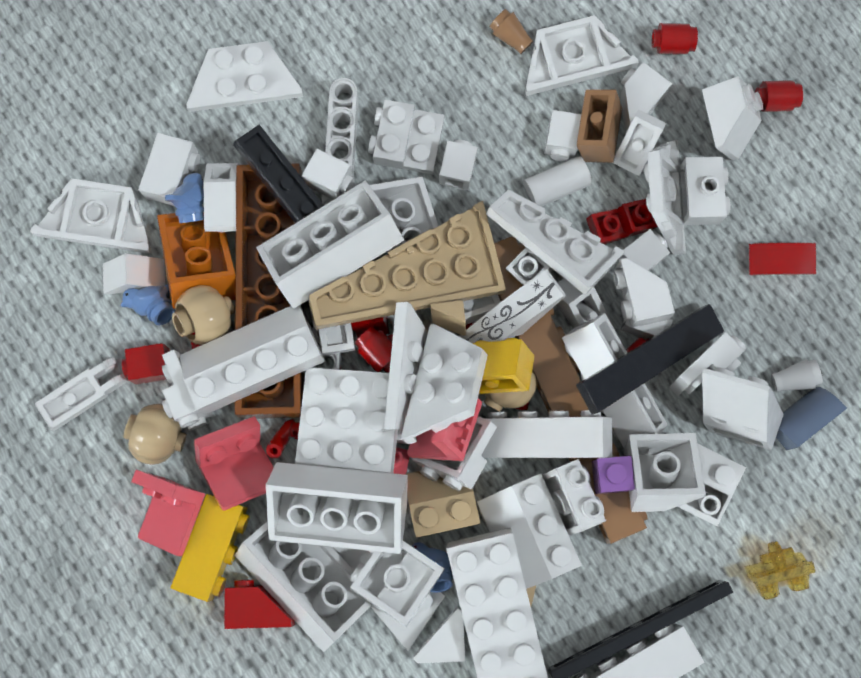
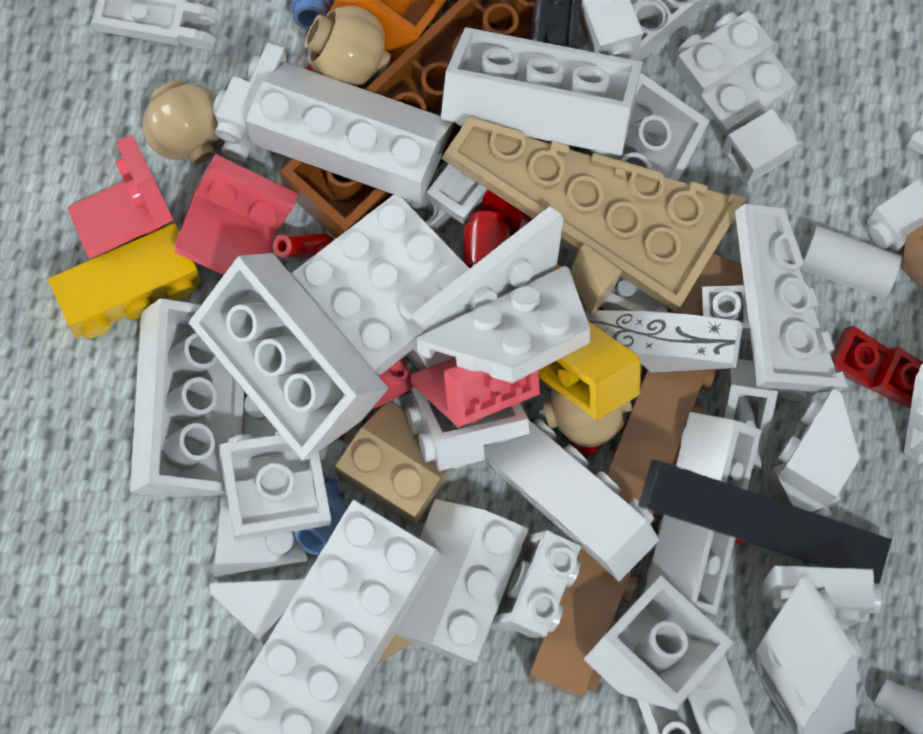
camera: 40 degrees right, 5 degrees down
(144, 363) = (239, 42): red brick -> none
(253, 608) = (106, 379): red slope -> none
(613, 475) = (601, 599): medium lavender brick -> none
(647, 250) = (875, 418): white brick -> none

